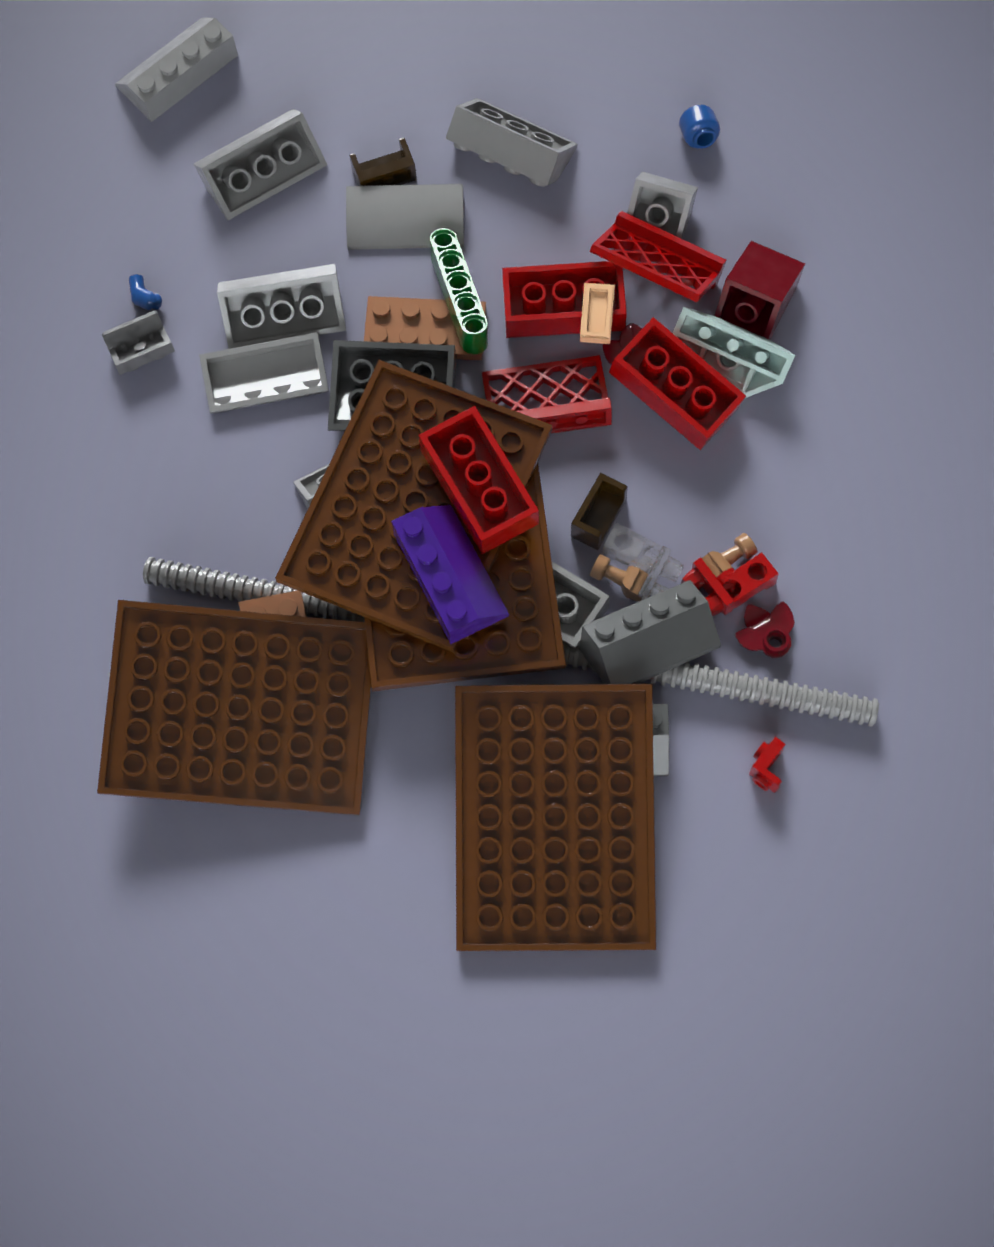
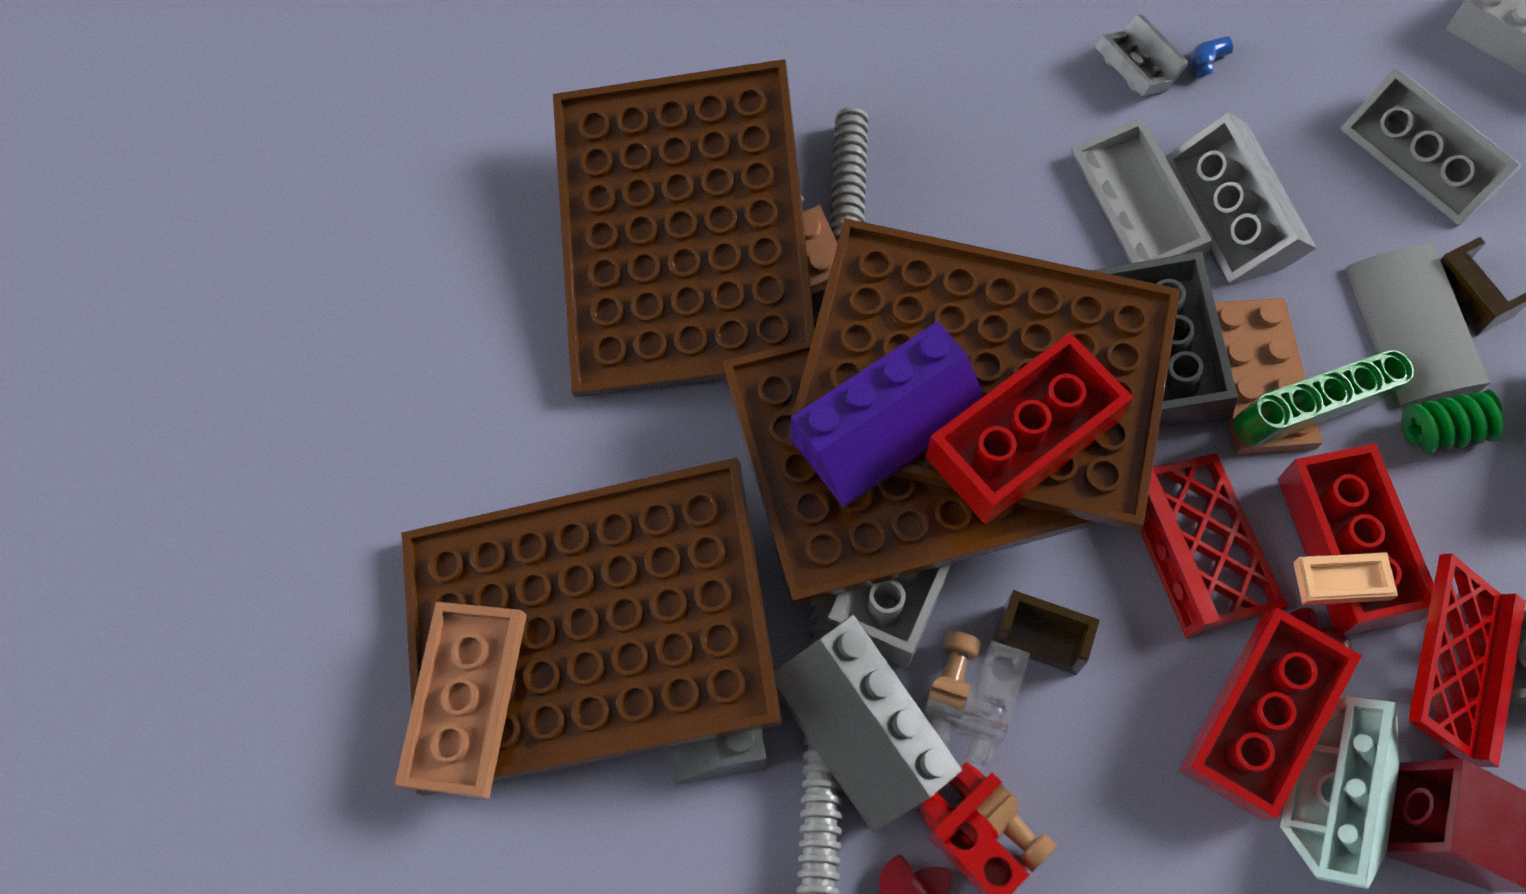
camera: 75 degrees right, 5 degrees down
(485, 214) = (1453, 421): none -> green piece
(598, 906) = (461, 700): none -> nougat plate

